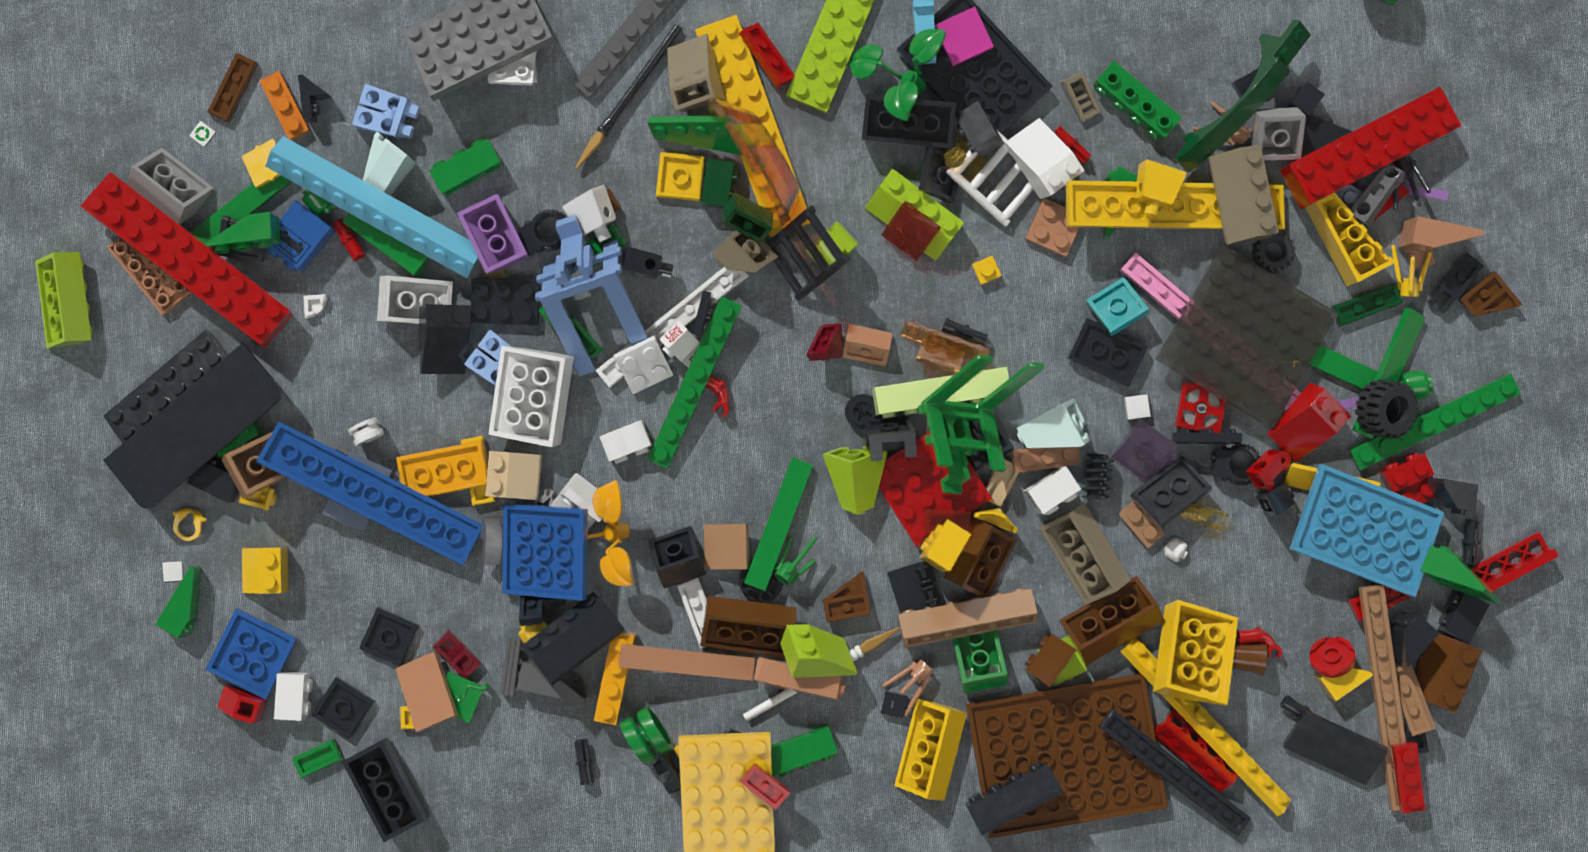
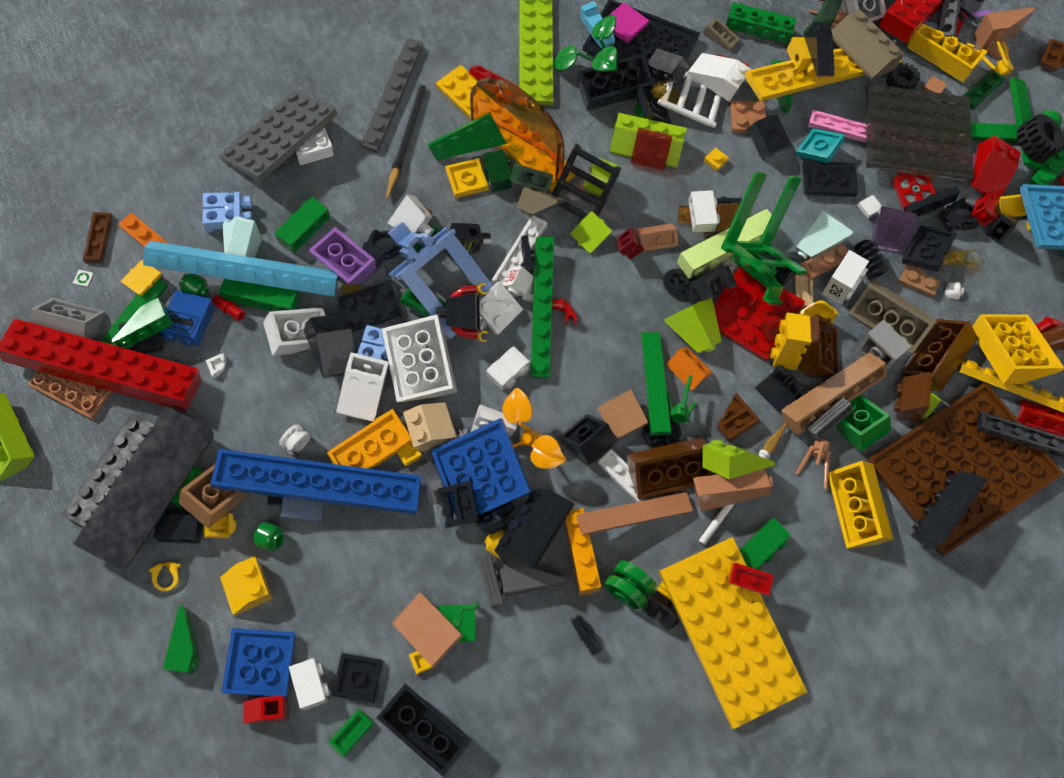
camera: 30 degrees left, 20 degrees down
(172, 571) = (163, 622): white sticker -> none
(303, 527) = (268, 537): none -> green head
(309, 93) = (164, 217): black slope -> none
(389, 636) = (375, 600): black tile -> none
(457, 654) = (439, 590): dark red slope -> none
(458, 401) = (362, 387): none -> white slope
(514, 578) = (464, 502): none -> black plate
(599, 361) = (463, 312): none -> black torso
(693, 74) = (448, 106): dark tan slope -> none
(791, 310) = (591, 232): none -> lime piece
(826, 520) = (687, 363): none -> orange panel
(894, 704) = (812, 484): black tile -> none
(927, 344) = (703, 211): none -> white brick
(944, 647) = (830, 419): none -> dark grey piece
(1049, 590) = (884, 344): none -> light grey brick
(1064, 269) = (769, 136): none -> black slope
(1169, 195) = (820, 46): none -> black slope
(1308, 278) = (935, 85): none -> nougat tile
(1456, 281) = (1030, 54): black hinge -> none

